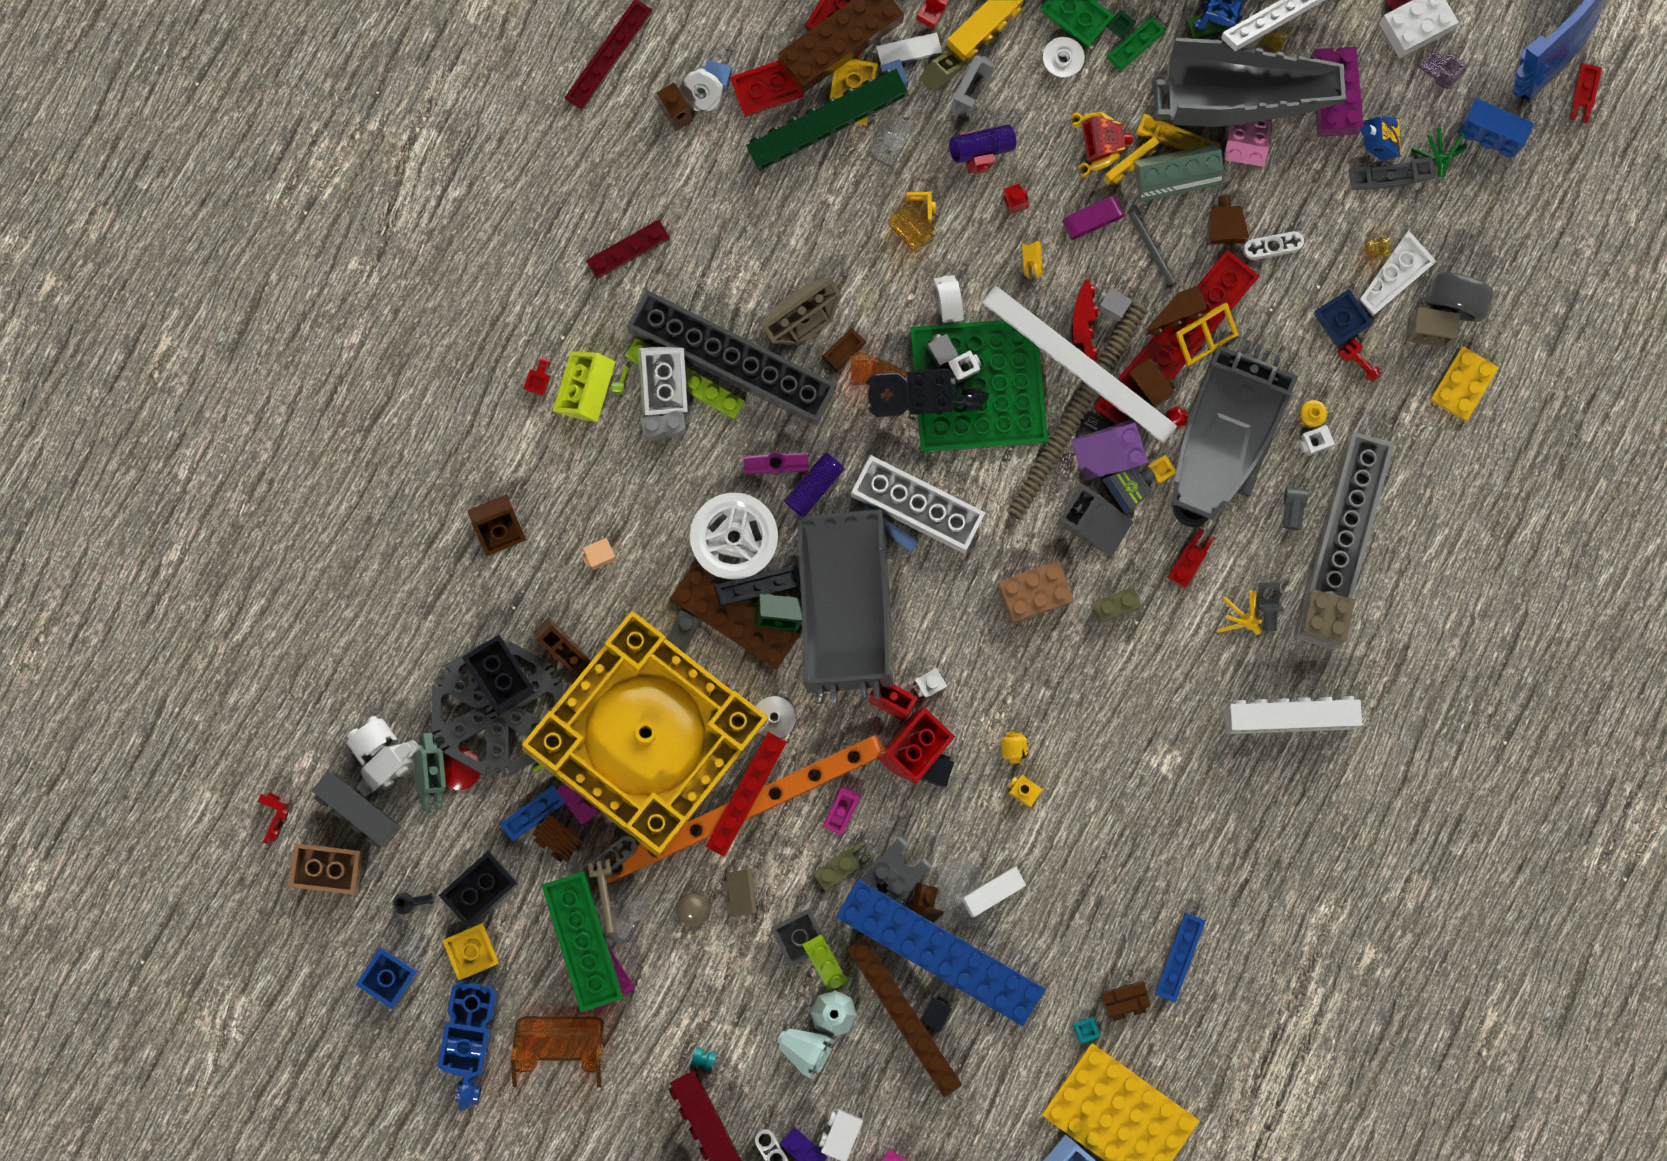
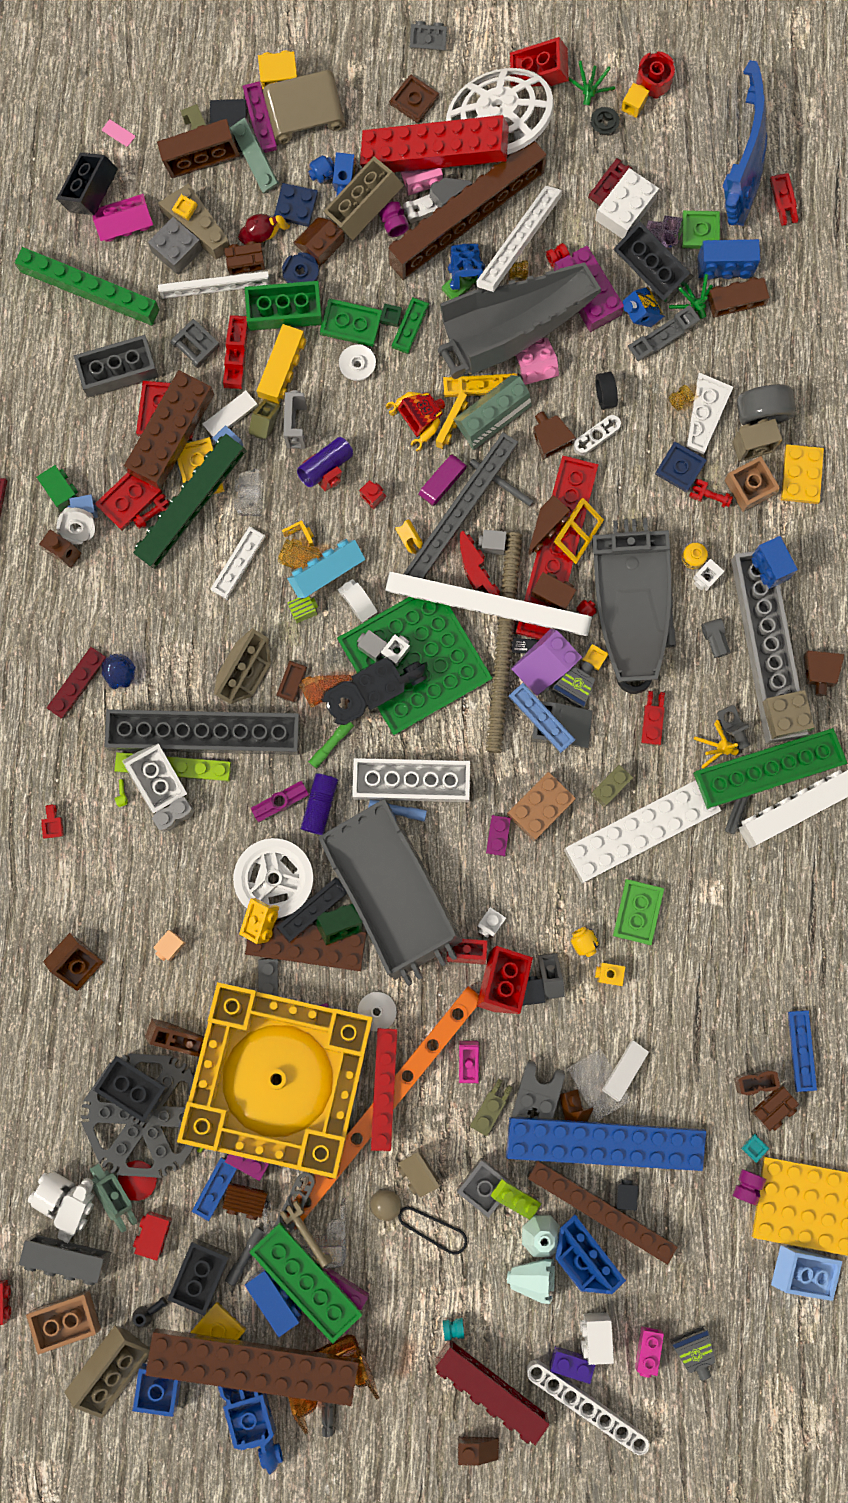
camera: 15 degrees left, 0 degrees up
(346, 939) = (107, 1372): none -> dark tan slope
(450, 828) = (152, 1236): none -> red brick
(493, 996) = (252, 1366): none -> reddish brown brick
(520, 900) = (238, 1268): none -> dark grey piece
(540, 1084) = (327, 1419): none -> dark grey axle
(542, 946) = (273, 1302): none -> blue brick
(584, 386) = (92, 812): neon yellow slope -> none
(675, 257) = (118, 671): none -> clear blue hair
(700, 42) = (57, 487): none -> green brick
(700, 571) = (259, 921): none -> yellow bracket
(718, 961) = (427, 1238): none -> black piece
(767, 115) = (140, 521): none -> red hinge
(842, 435) = (323, 752): none -> bright green piece
(846, 204) = (238, 563): none -> white tile
(865, 1053) = (585, 1260): none -> blue wedge
(890, 281) = (303, 608): none -> lime brick
(932, 252) = (325, 569): none -> medium azure brick
(964, 764) = (551, 975): none -> dark grey slope
(978, 601) = (498, 835): none -> magenta plate
(1061, 1063) = (749, 1187): none -> magenta wheel
(1078, 503) = (541, 717): none -> medium blue tile
(1082, 743) = (638, 912): none -> bright green plate
(1100, 254) = (462, 507): none -> dark grey plate
(1113, 963) = (761, 1081): none -> reddish brown brick
(1125, 663) = (638, 832): none -> white brick
(1235, 687) = (736, 815): none -> dark grey axle
(1284, 662) = (770, 768): none -> green plate
(1304, 204) = (606, 390): none -> black tyre
(1320, 41) = (556, 254): none -> red wheel
(1386, 458) = (774, 562): none -> blue brick
(1386, 590) = (822, 670): none -> reddish brown torso
(1406, 369) = (752, 484): none -> medium nougat brick
(1415, 96) = (653, 262): none -> black brick
(1482, 82) = (700, 227): none -> bright green plate
(1486, 172) = (738, 297): none -> reddish brown brick

